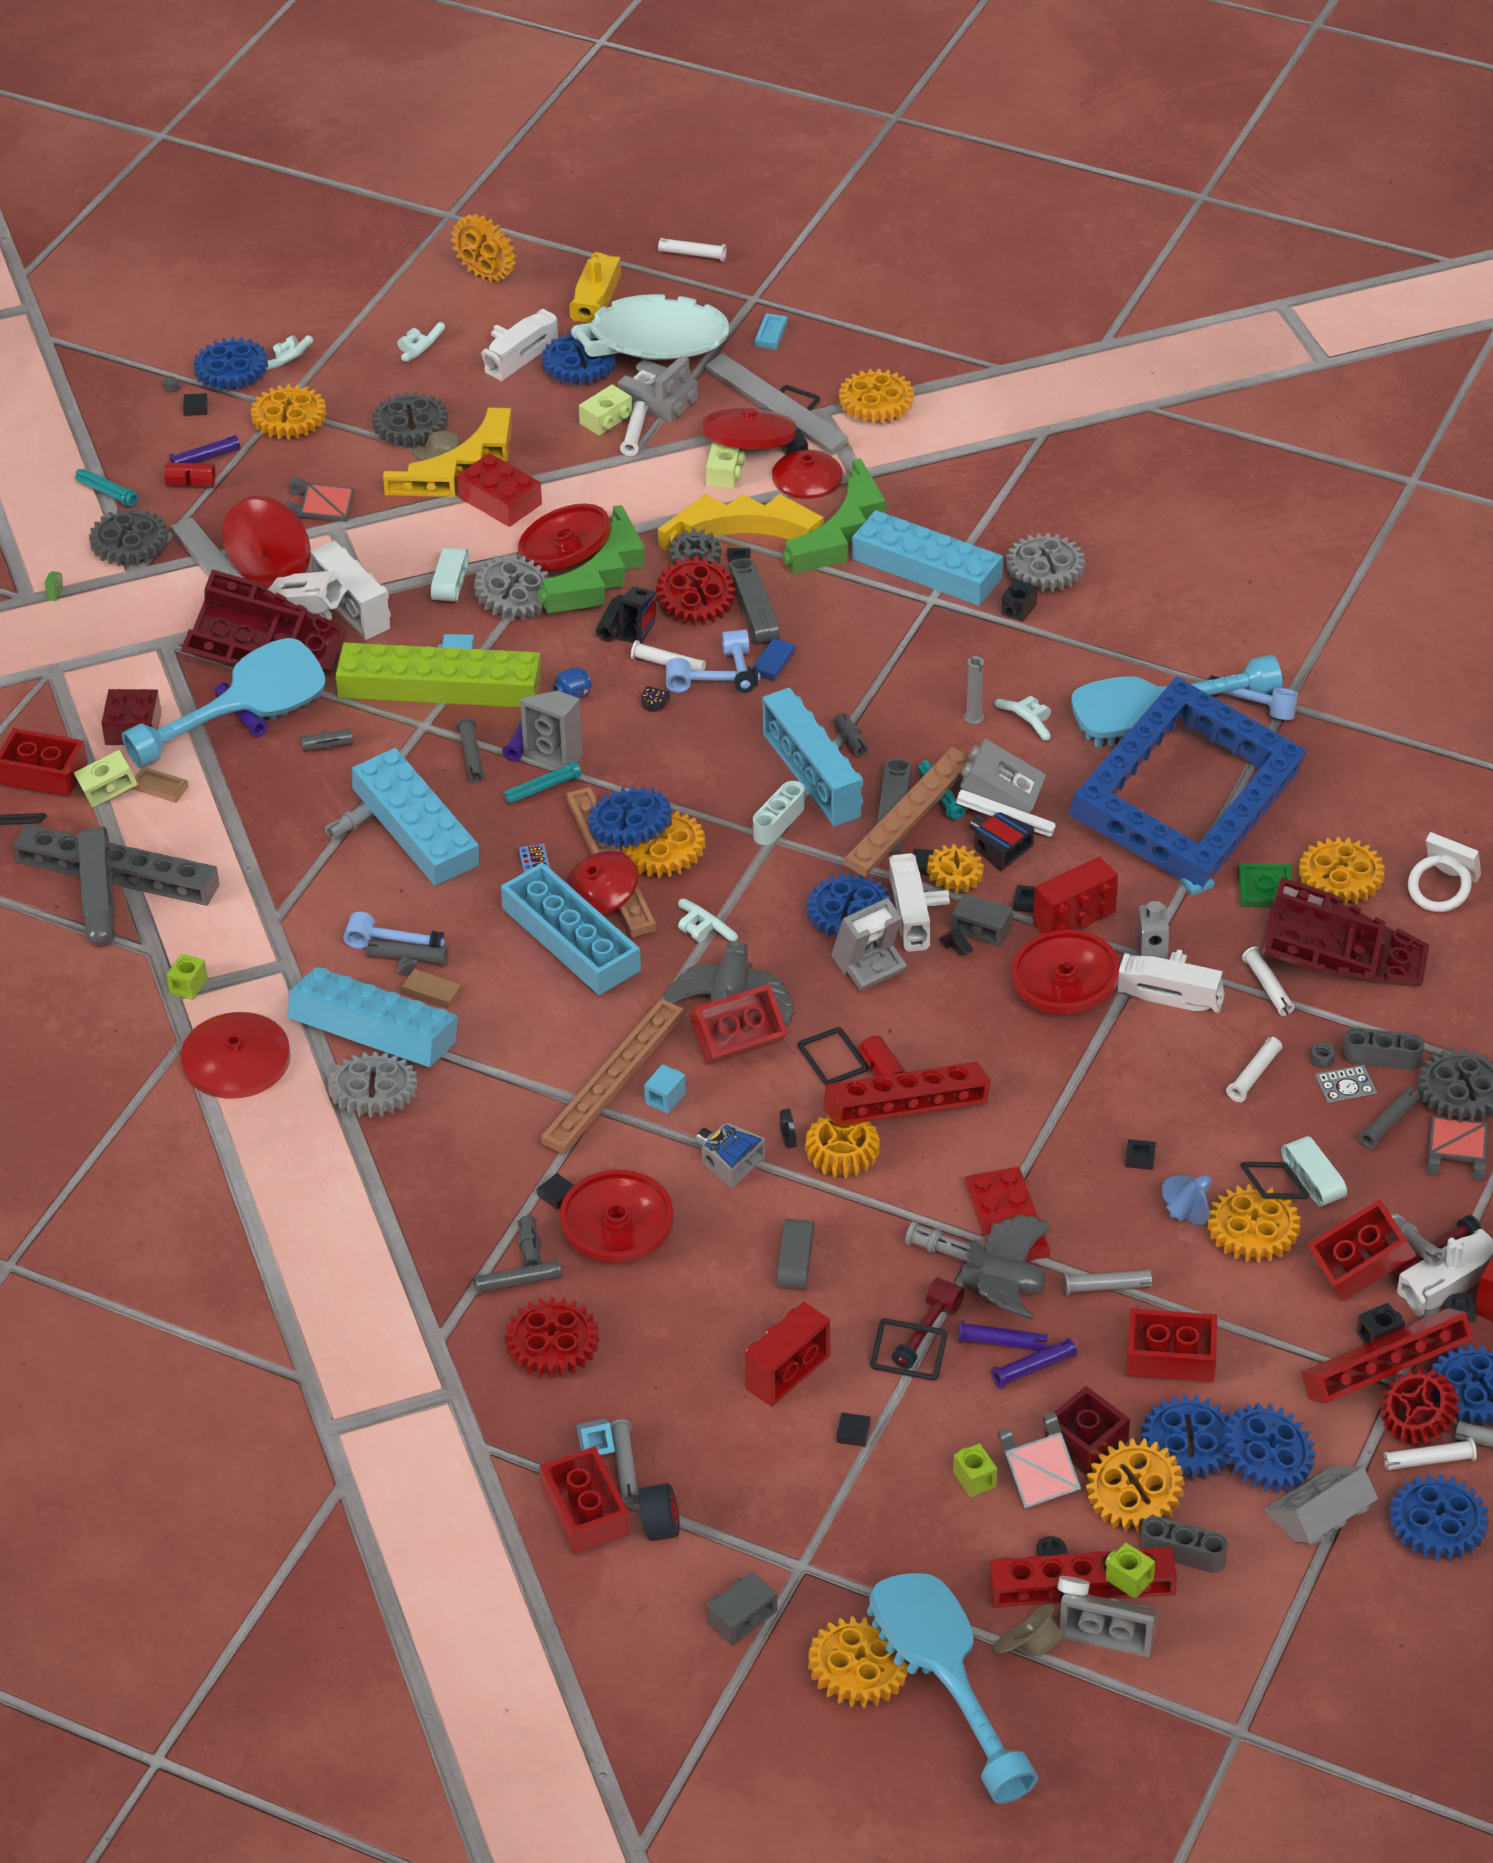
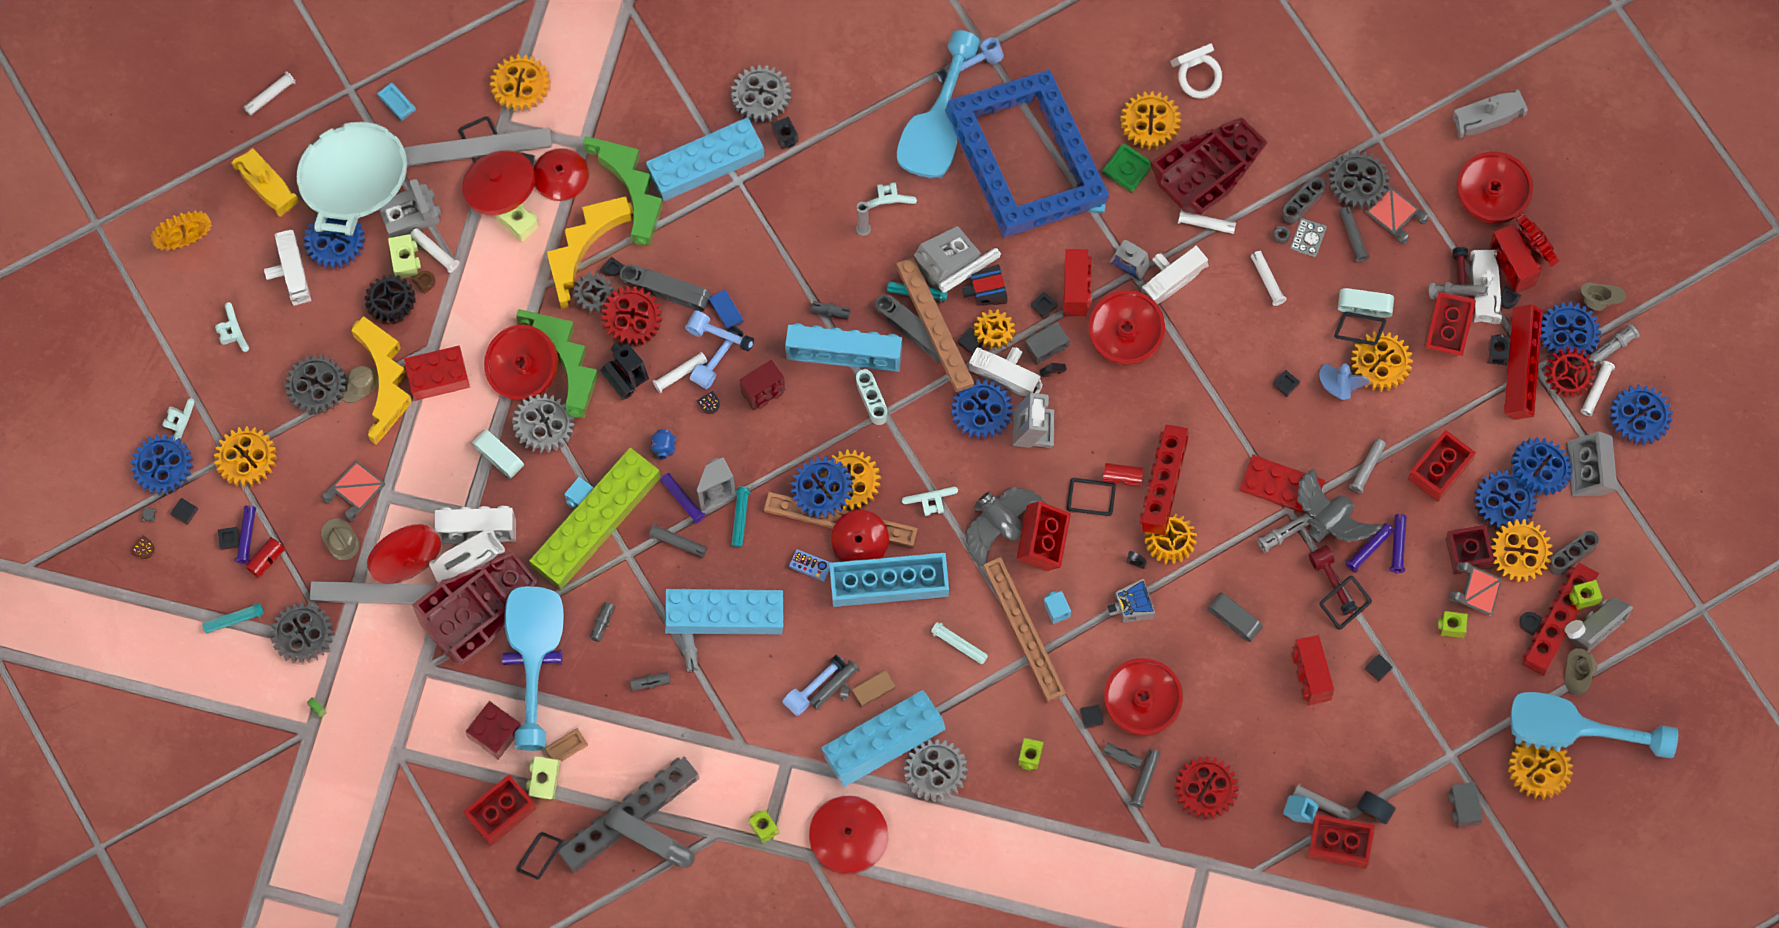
camera: 55 degrees left, 25 degrees up
(132, 397) = (143, 548): none -> reddish brown tile
(190, 442) = (228, 538): none -> black tile
(298, 816) = (650, 681): none -> dark grey pin
(461, 1156) = (1030, 746): none -> lime brick
(549, 1005) = (959, 643): none -> light aqua axle
(550, 423) = (406, 294): none -> black gear
(595, 440) = (425, 281): none -> reddish brown tile
(707, 716) = (762, 385): none -> dark red brick

